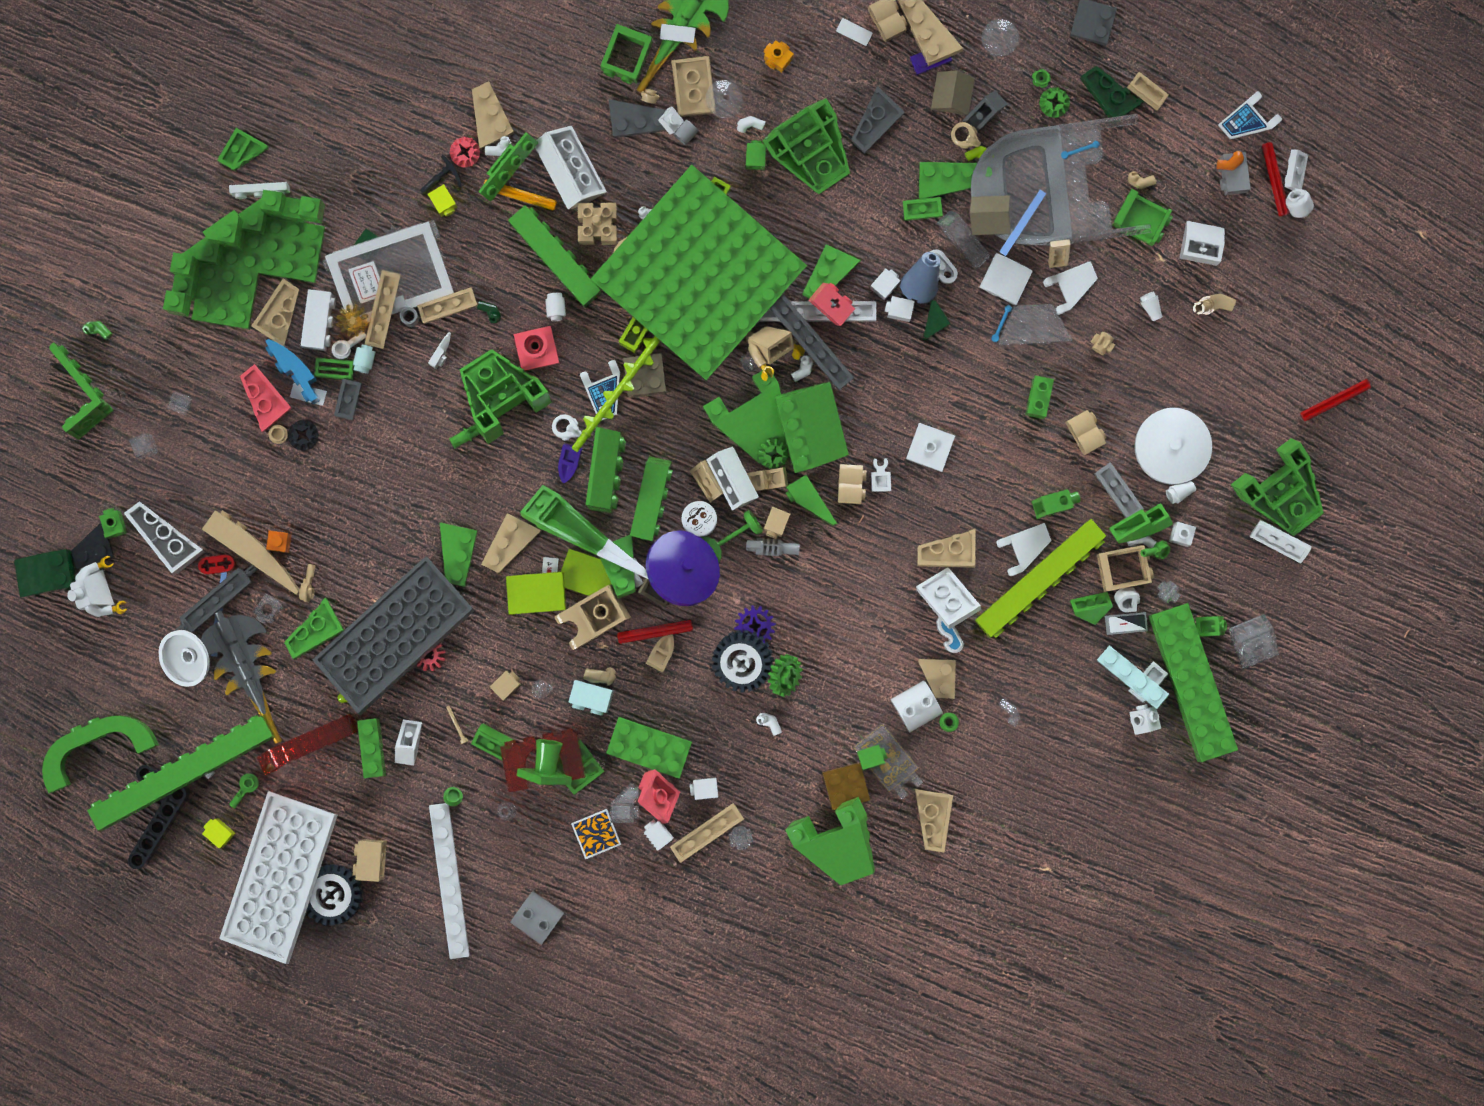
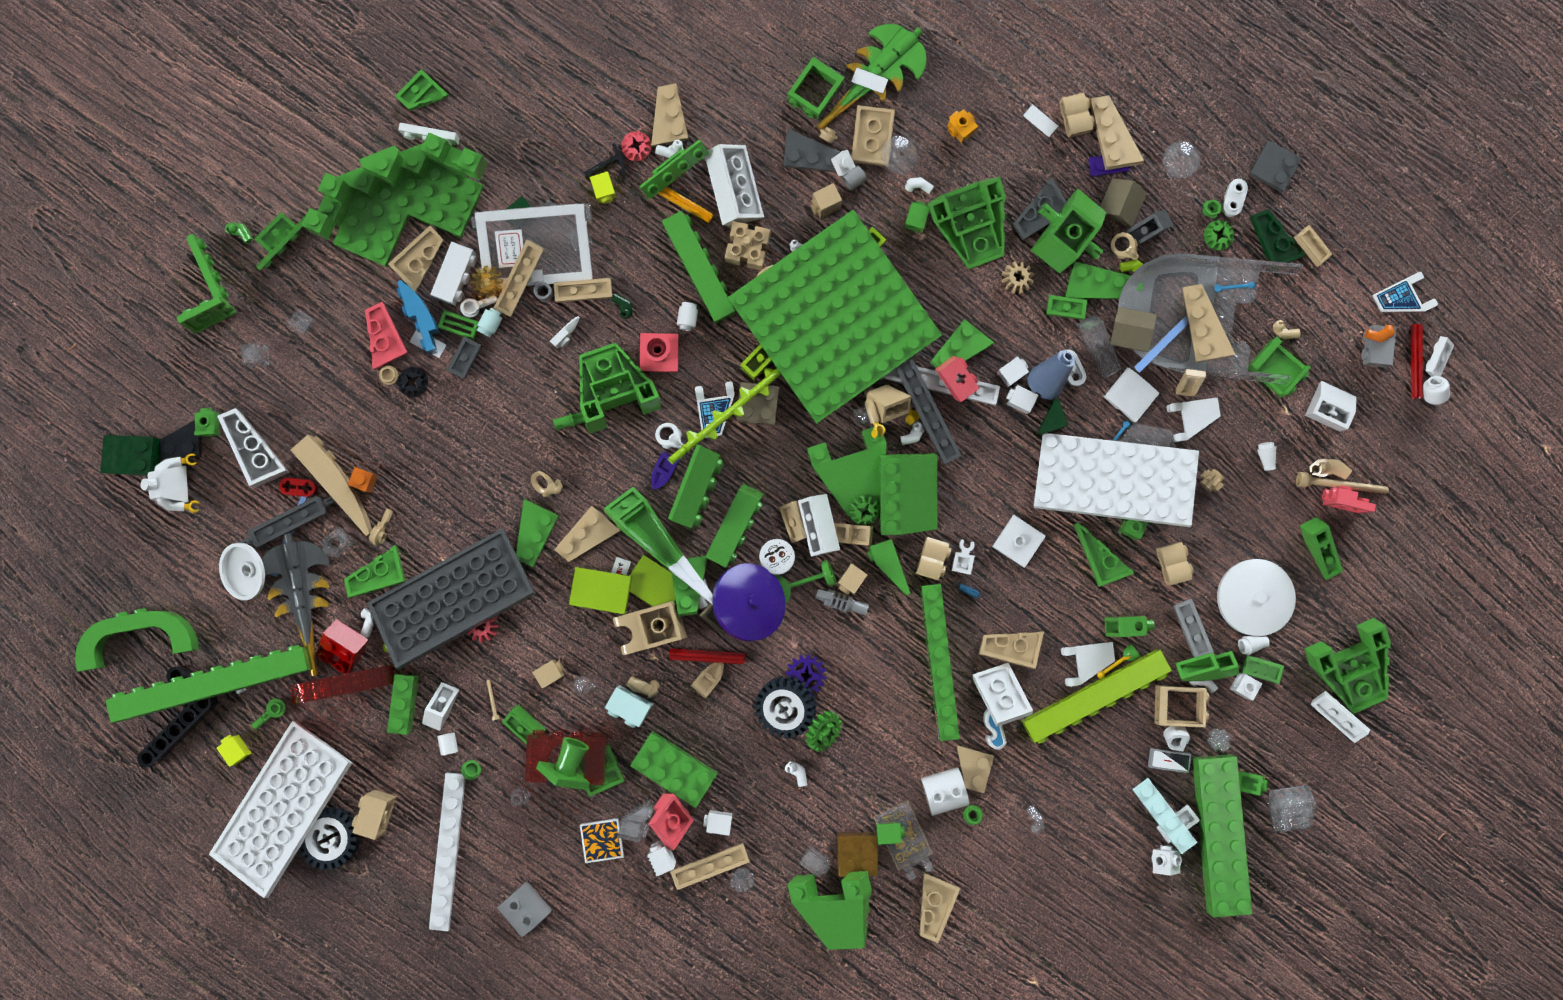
camera: 10 degrees right, 0 degrees up
(136, 323) = (275, 236): none -> bright green bracket
(297, 708) = (341, 647): none -> red slope
(318, 679) = (368, 623): none -> white arm
(424, 776) = (447, 743): none -> white beam
(465, 505) = (552, 488): none -> tan piece
(663, 162) = (826, 201): none -> tan brick
(807, 803) = (815, 861): none -> clear brick
(860, 194) = (1023, 275): none -> tan gear
(880, 582) = (939, 662): none -> bright green brick
(893, 507) = (972, 592): none -> dark azure piece
(897, 150) = (1056, 244): none -> bright green slope
(1009, 364) = (1116, 479): none -> white plate
(1018, 449) = (1103, 563): none -> bright green wing
(1061, 61) = (1234, 196): none -> white plate
(1063, 199) = (1205, 328): none -> tan wing
(1063, 530) = (1129, 654): none -> hinge
(1092, 607) = (1140, 736): bright green slope -> none
(1160, 550) = (1219, 697): bright green plate -> none
(1194, 320) = (1304, 479): none -> tan piece
(1195, 514) = (1262, 669): none -> bright green plate
(1225, 382) = (1322, 547): none -> bright green slope
(1233, 330) = (1346, 499): none -> coral plate
(1335, 400) = (1424, 591): red axle -> none

